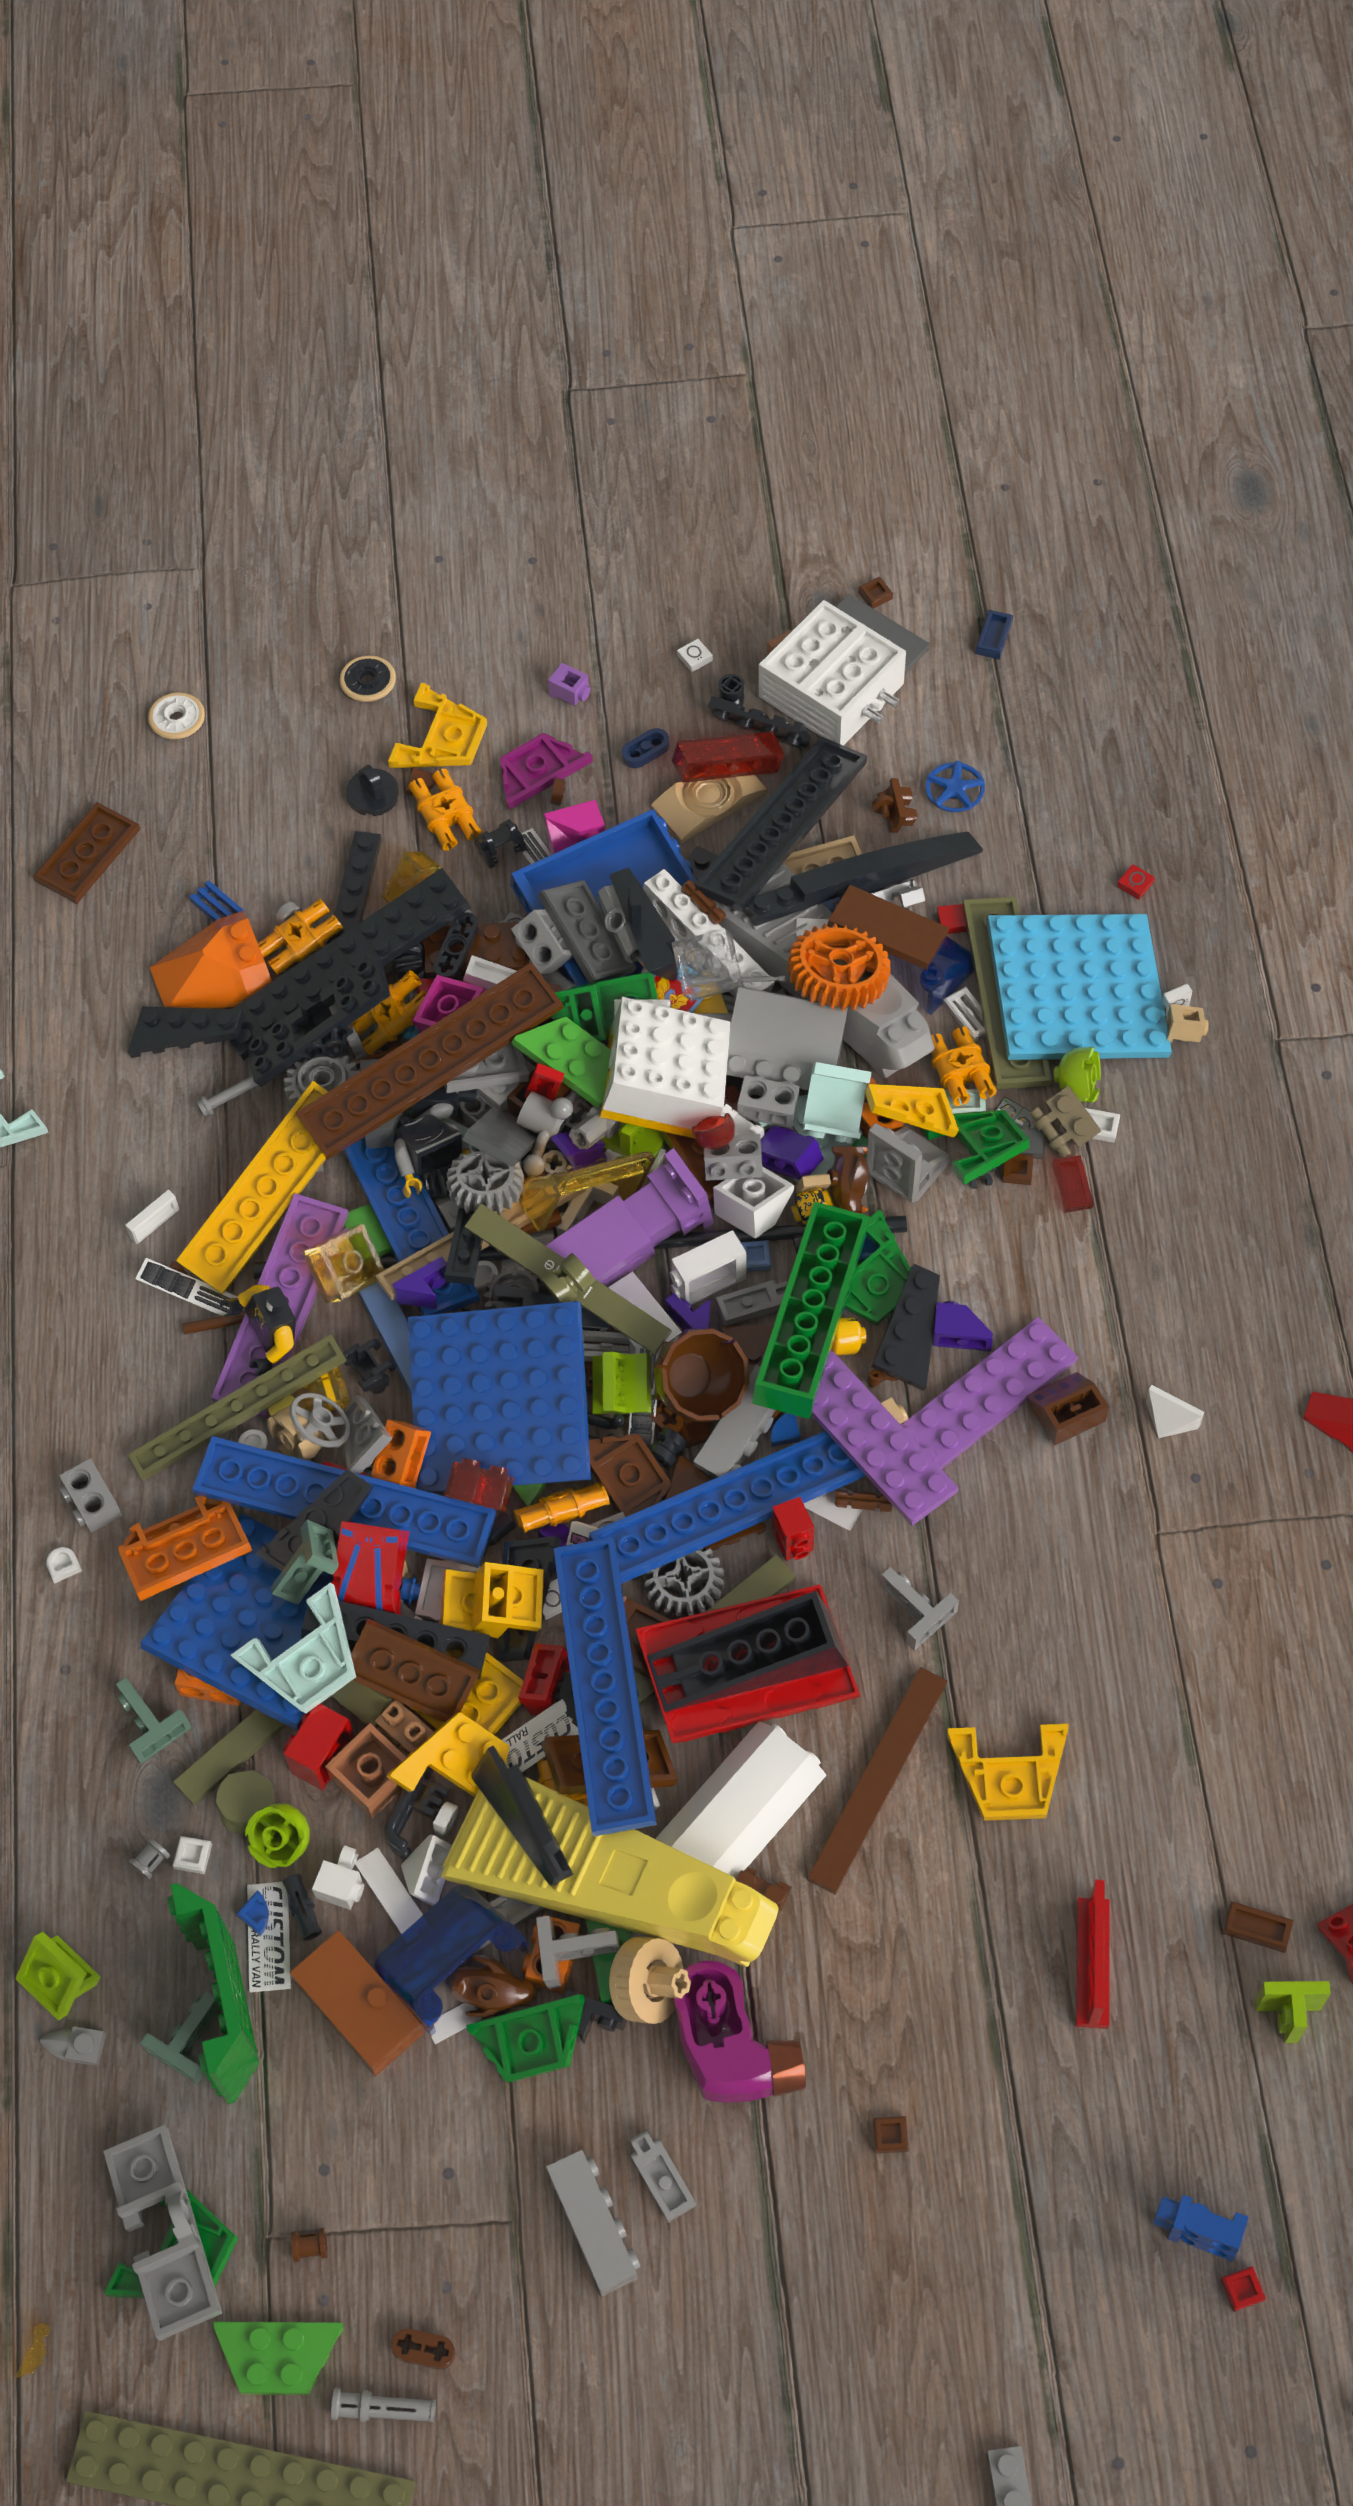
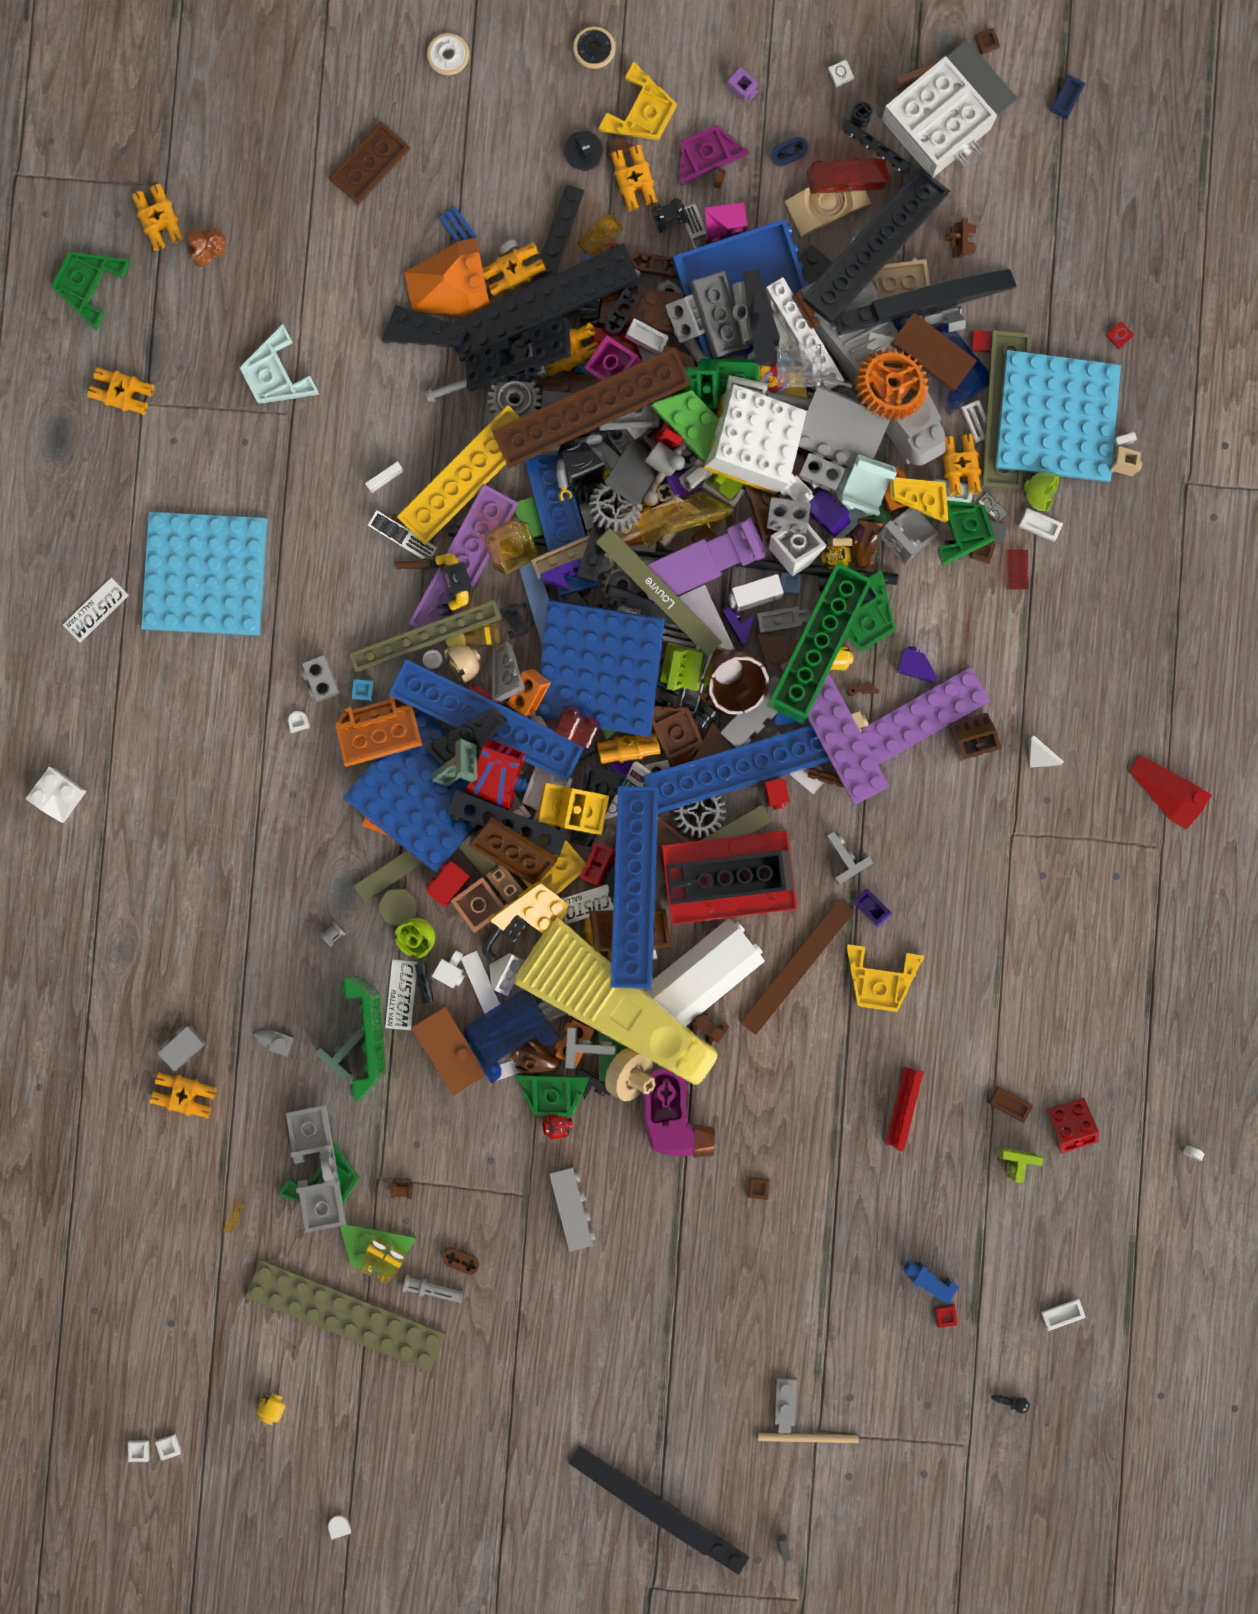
camera: 10 degrees right, 25 degrees up
(55, 1974) = (268, 998): lime bracket -> none
(154, 1501) = (362, 690): none -> dark azure plate
(155, 1734) = (341, 843): sand green bracket -> none
(192, 1855) = (360, 934): white tile -> none
(255, 1913) = (395, 980): blue tile -> none
(291, 2358) = (374, 1256): none -> clear yellow hips
(312, 1666) = (451, 839): light aqua wing -> none
(319, 1420) = (479, 660): light grey wheel -> none
(445, 1820) = (521, 942): white tile -> none
(488, 895) = (643, 267): none -> reddish brown beam
(520, 1811) = (570, 960): black wedge -> none
(546, 2091) = (556, 1126): none -> red head
(568, 1279) = (659, 599): olive wheel -> none
(661, 2176) = (617, 1188): light grey hinge -> none
(714, 1131) = (779, 499): clear red hair -> none
(909, 1334) = (882, 664): black wing -> none
(955, 787) = (1008, 228): blue wheel -> none
(972, 1667) = (872, 908): none -> dark purple slope
(1072, 1117) = (1029, 522): dark tan plate -> none

